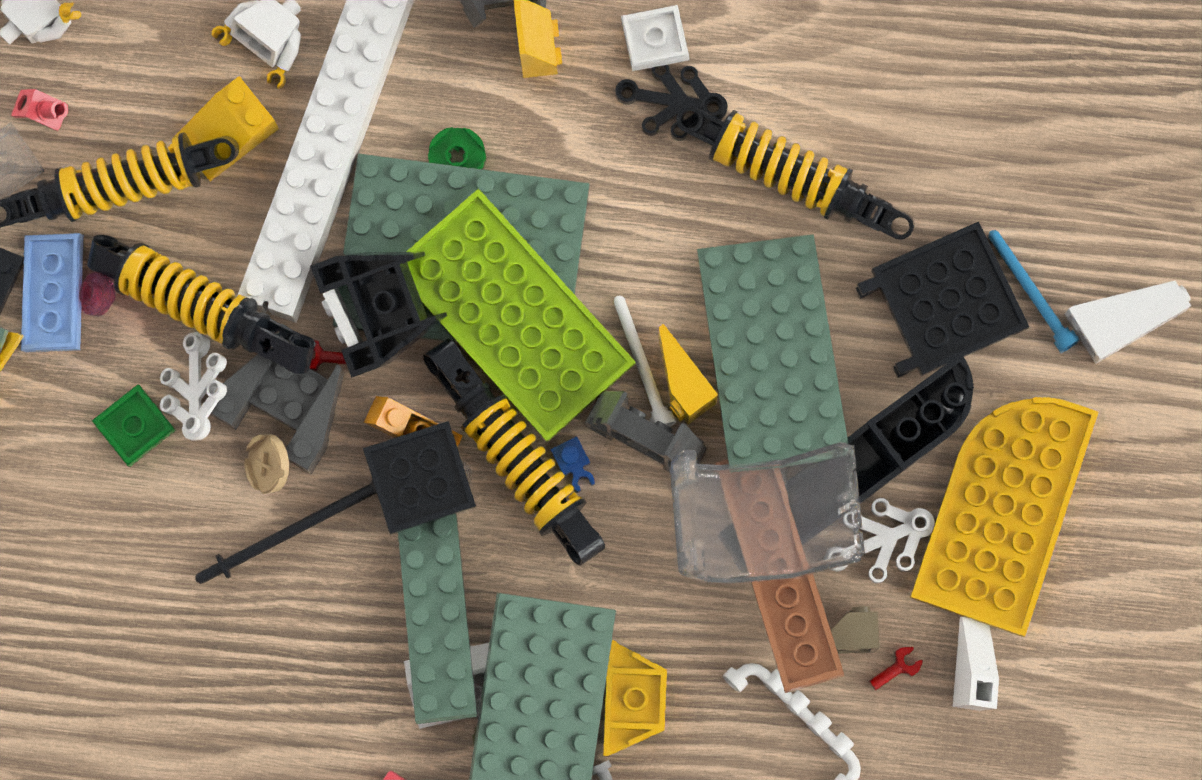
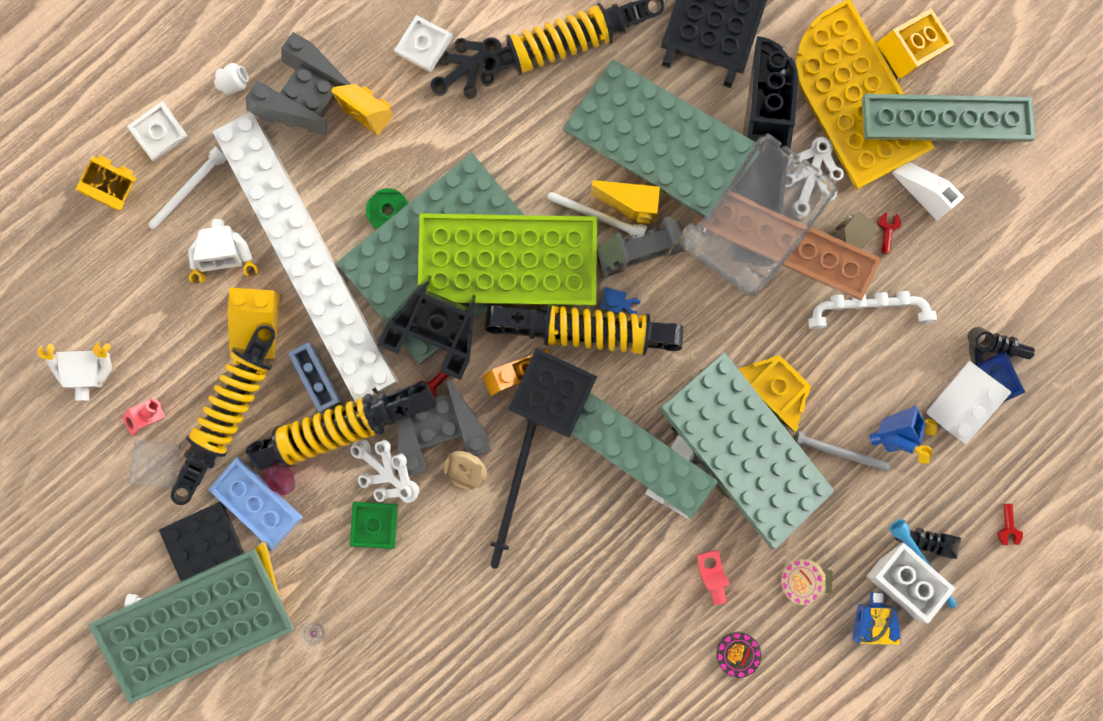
camera: 50 degrees left, 5 degrees up
(226, 237) = (315, 377): none -> sand blue brick
(336, 307) = (431, 358): white plate -> none
(1067, 622) = (948, 118): none -> sand green plate
(1116, 520) = (914, 43): none -> yellow slope

